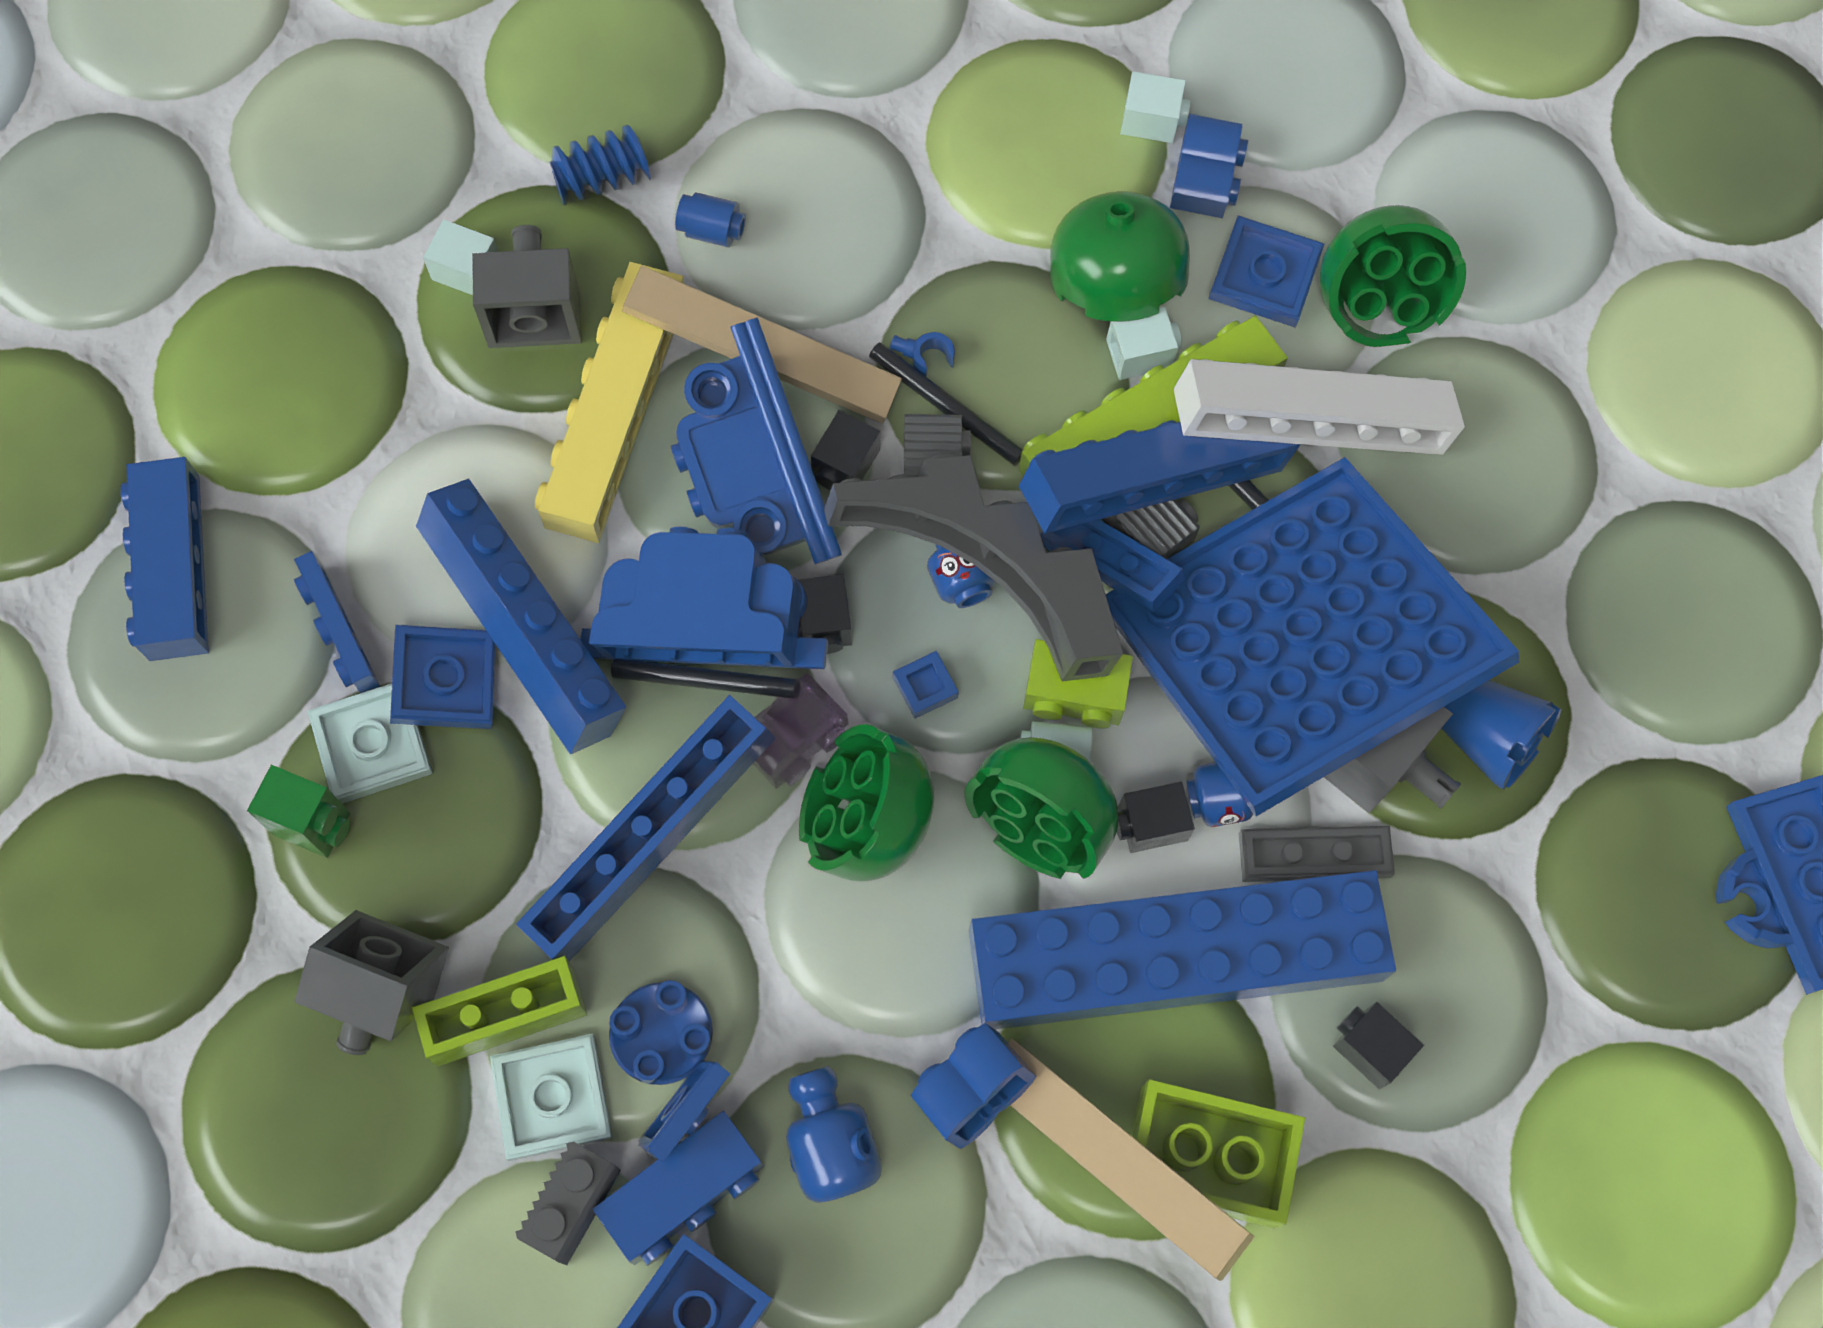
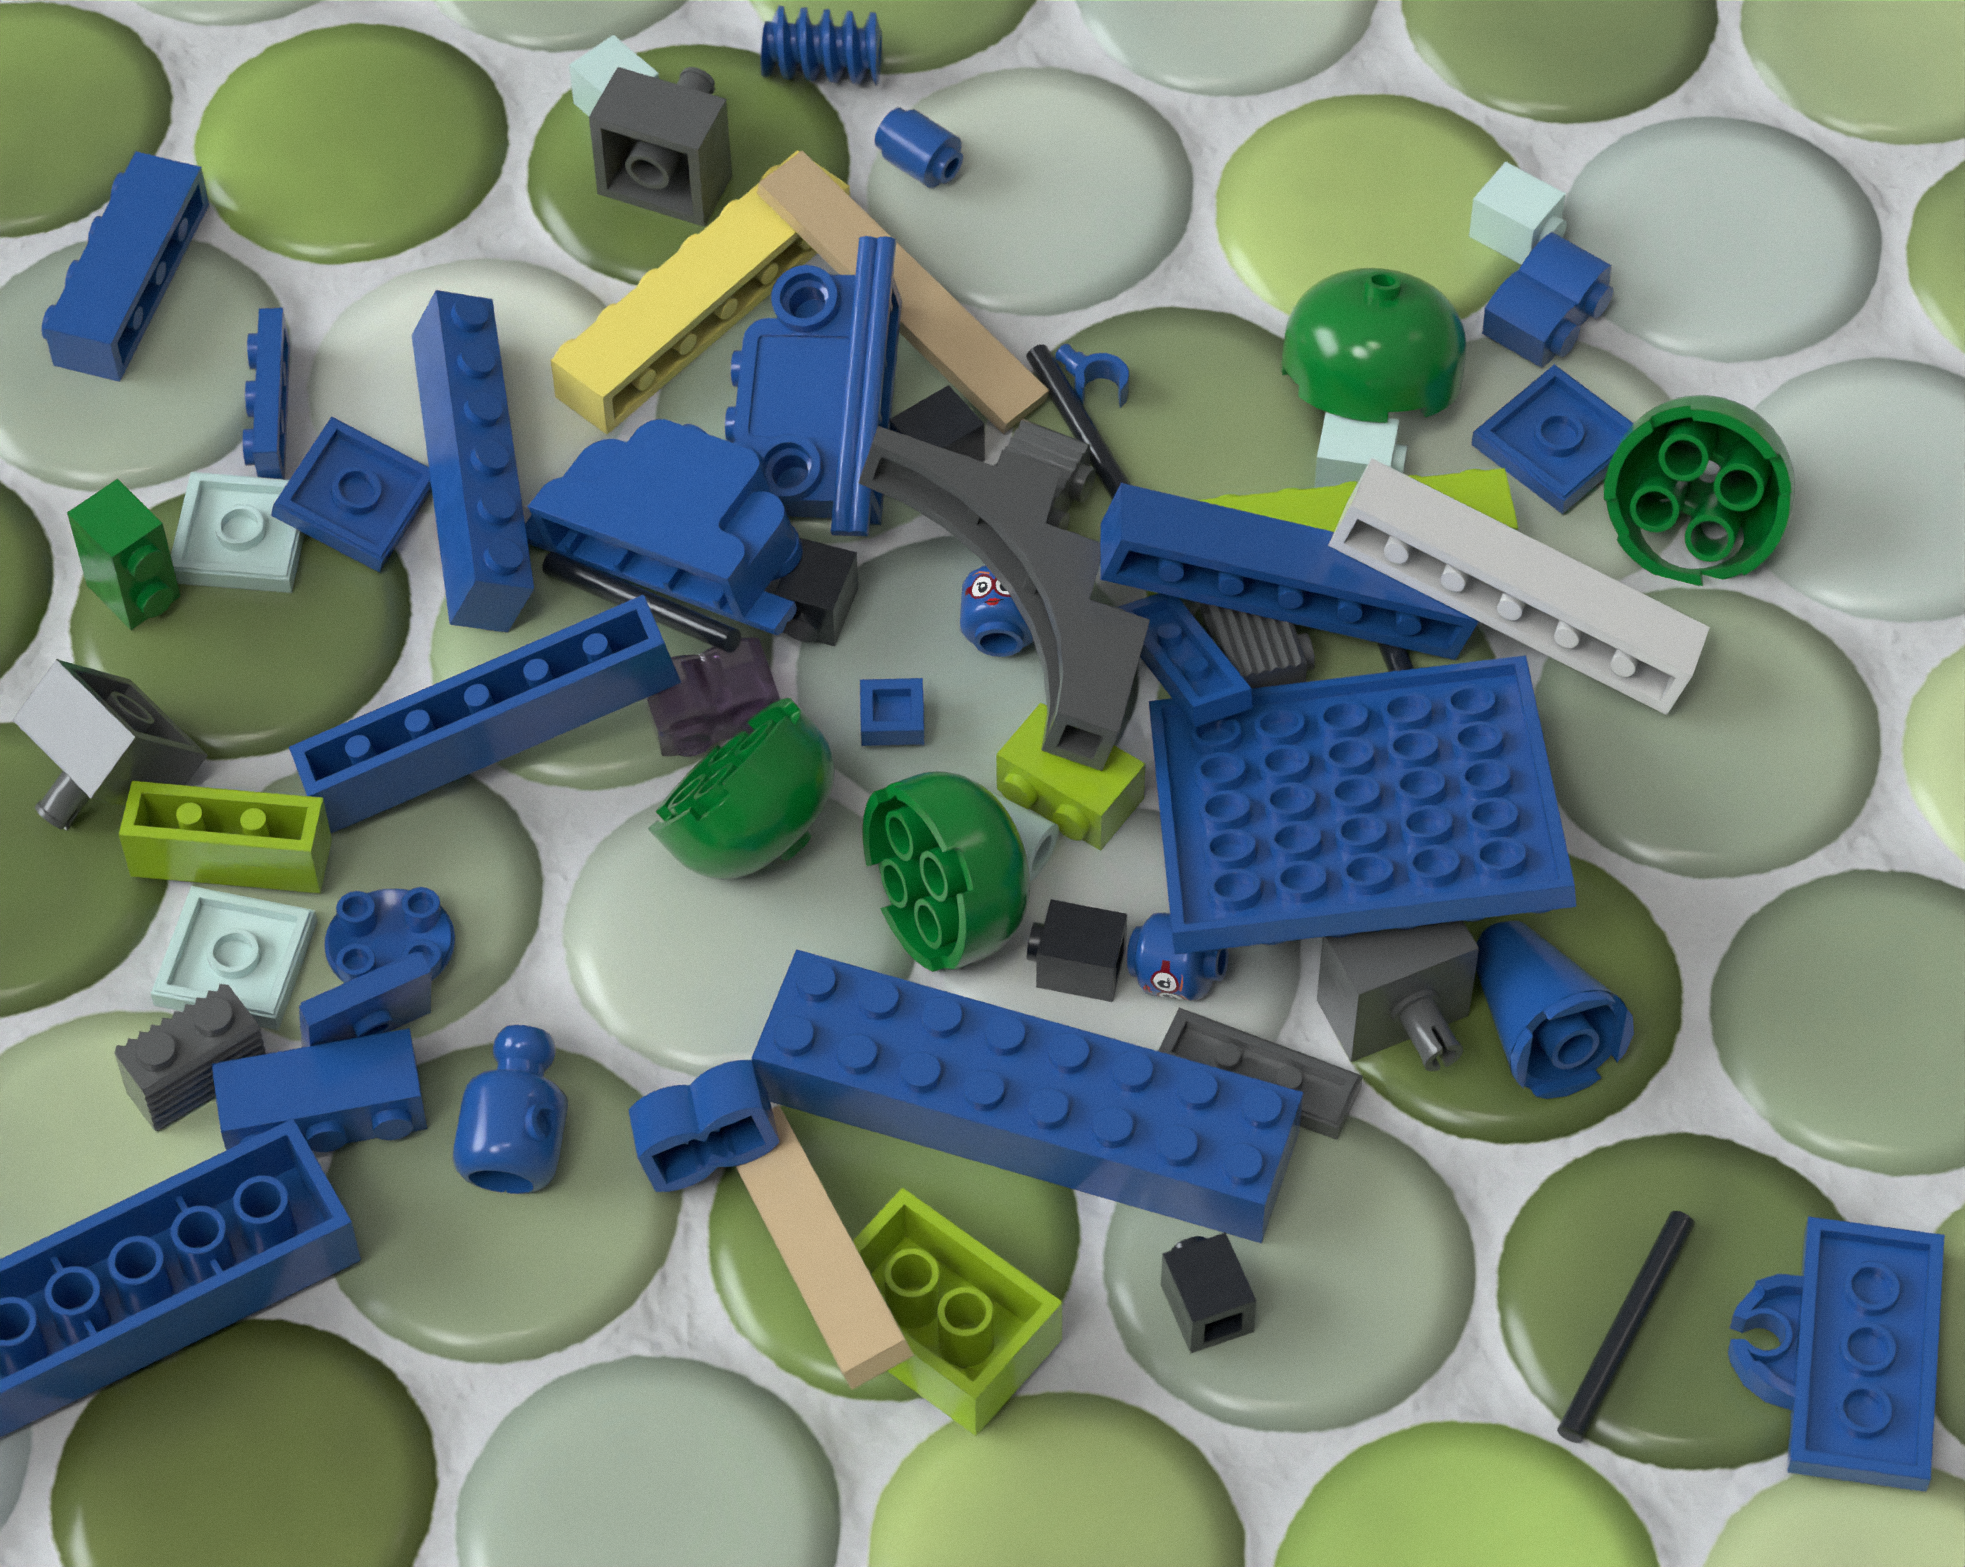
camera: 30 degrees right, 15 degrees down
(1651, 934) = (1625, 1327): none -> black bar

